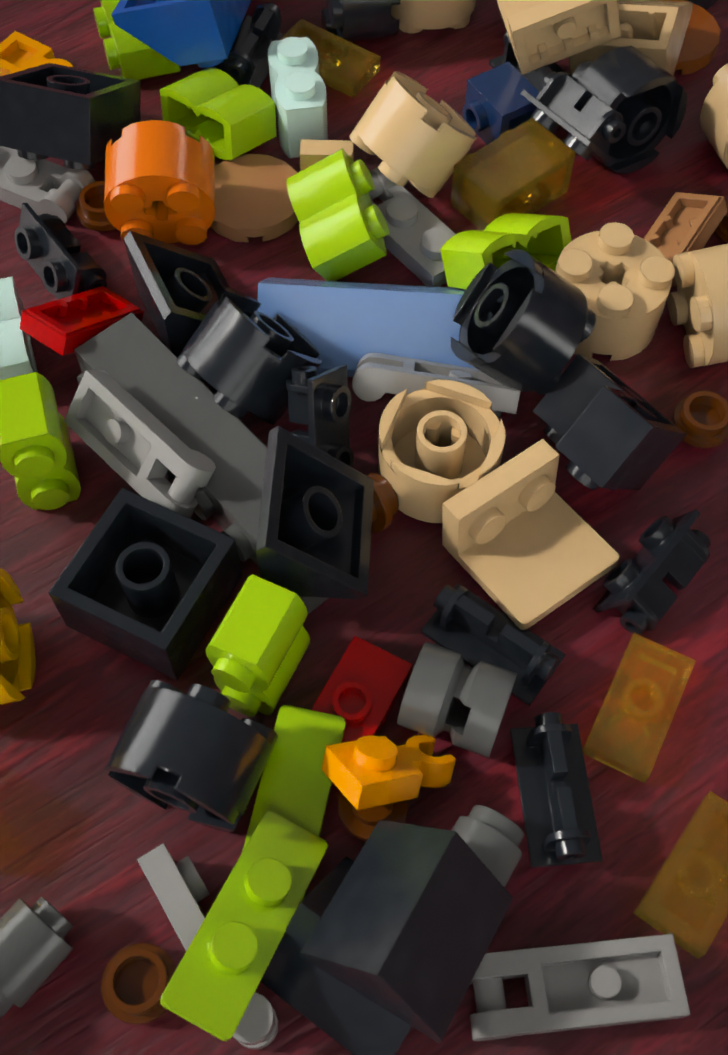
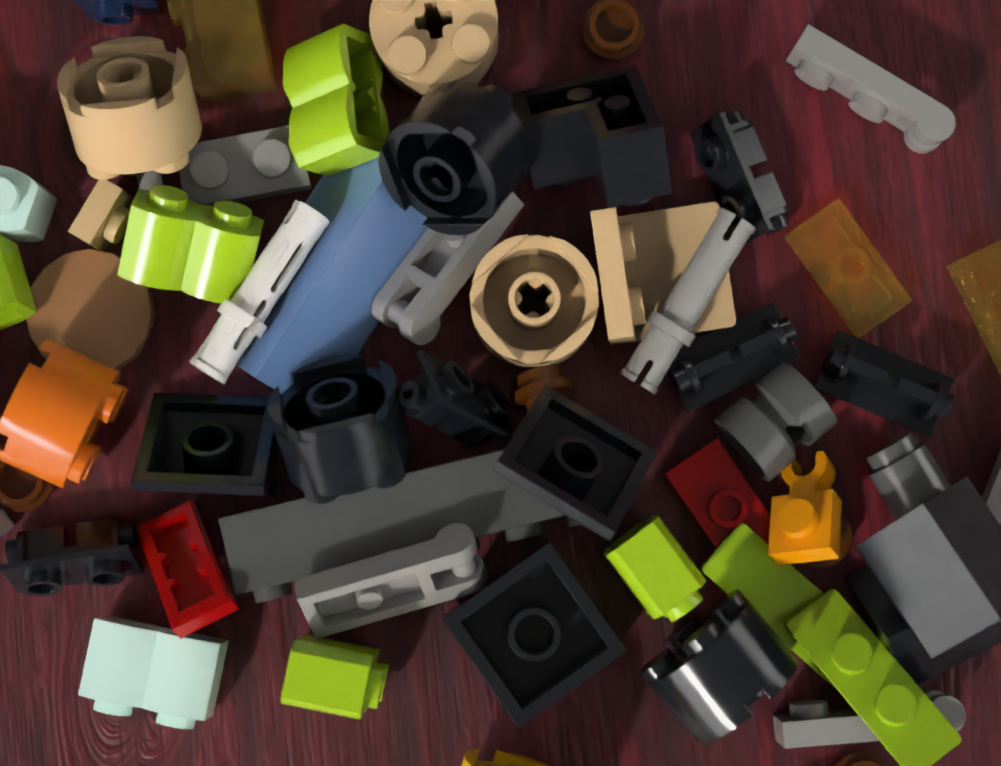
camera: 60 degrees left, 25 degrees up
(260, 253) = (253, 301): none -> white pin
(519, 563) = (687, 300): none -> light grey pin

